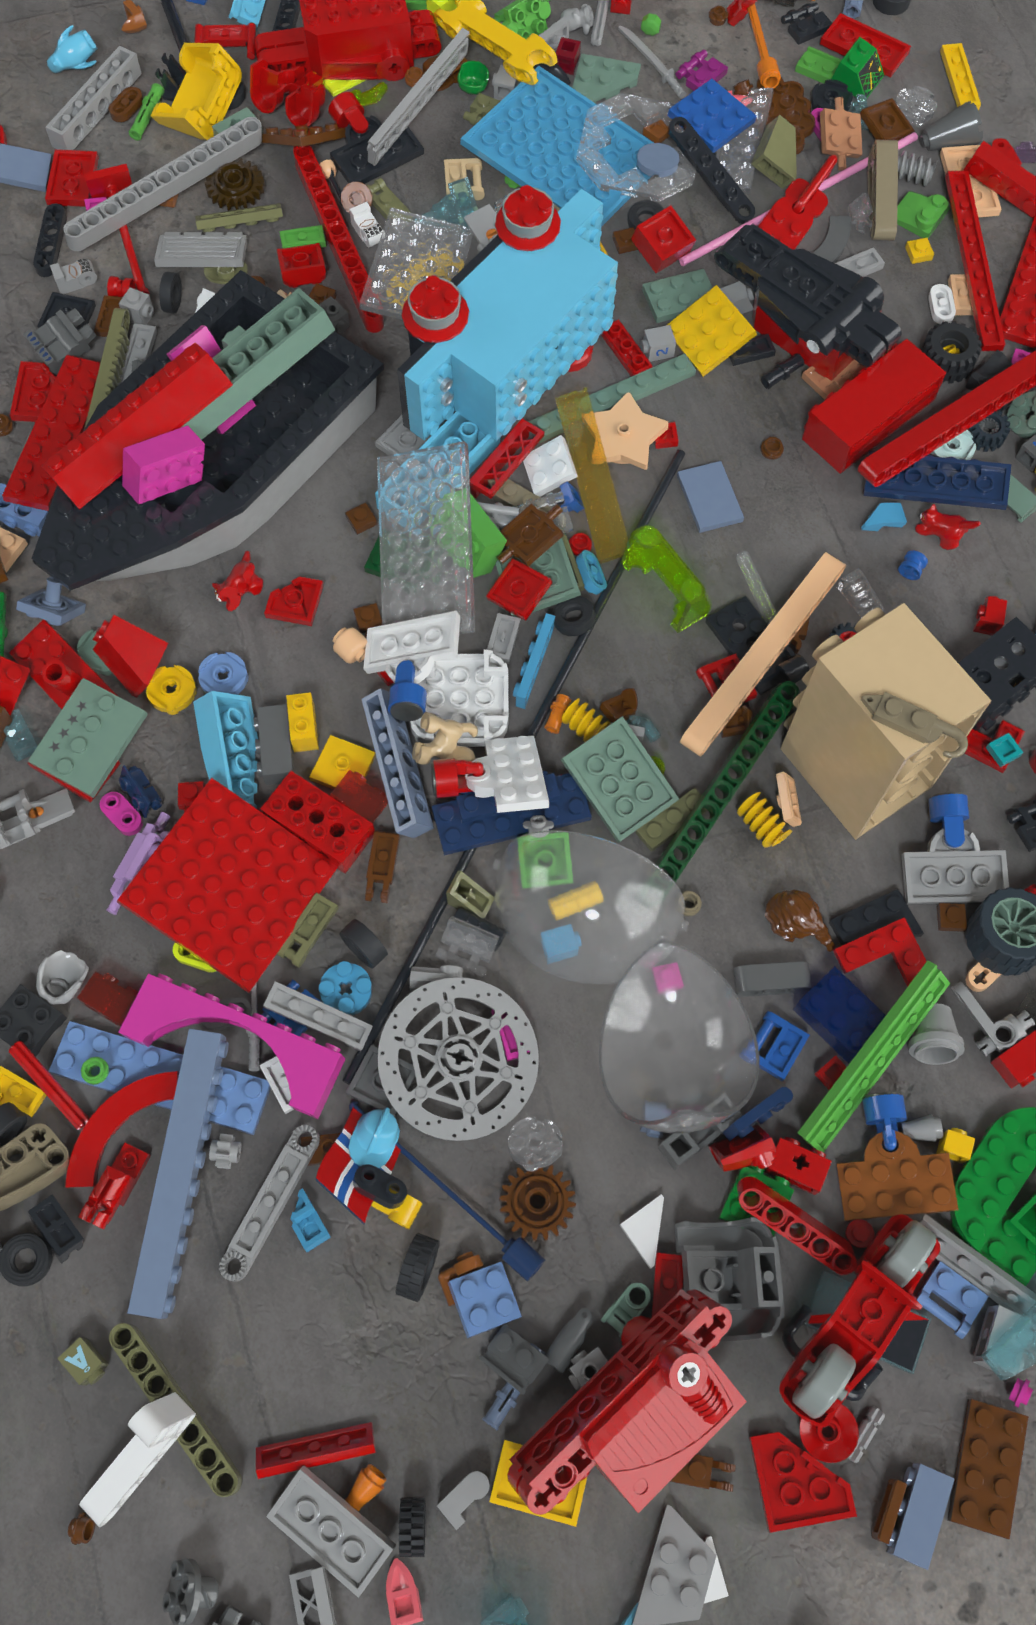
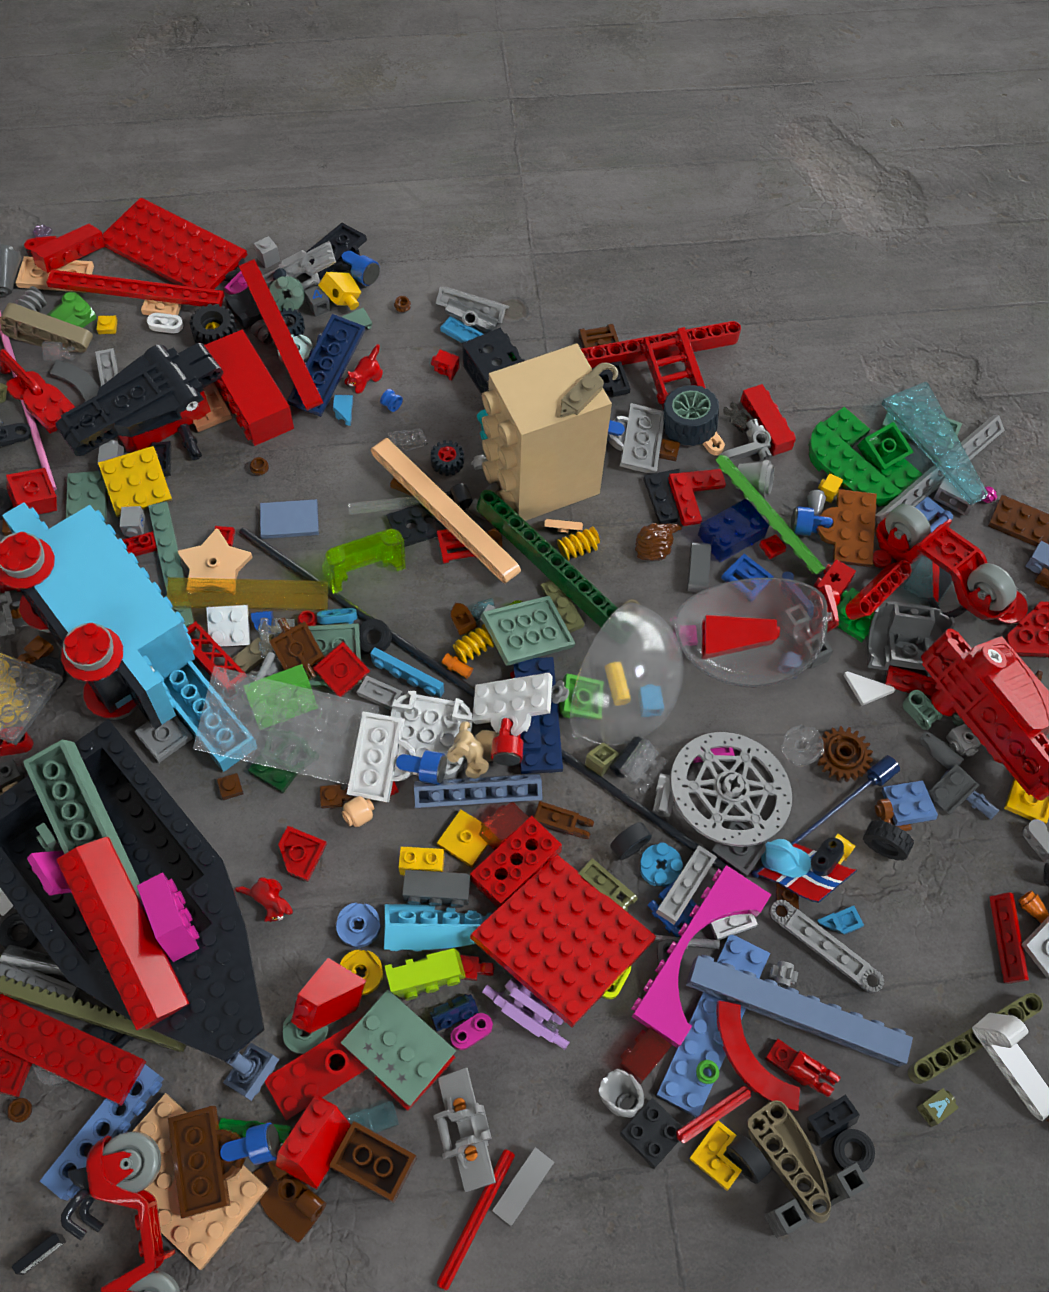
camera: 80 degrees left, 5 degrees down
(169, 745) = (425, 974): none -> lime wedge
(670, 1028) = (734, 634): none -> red slope

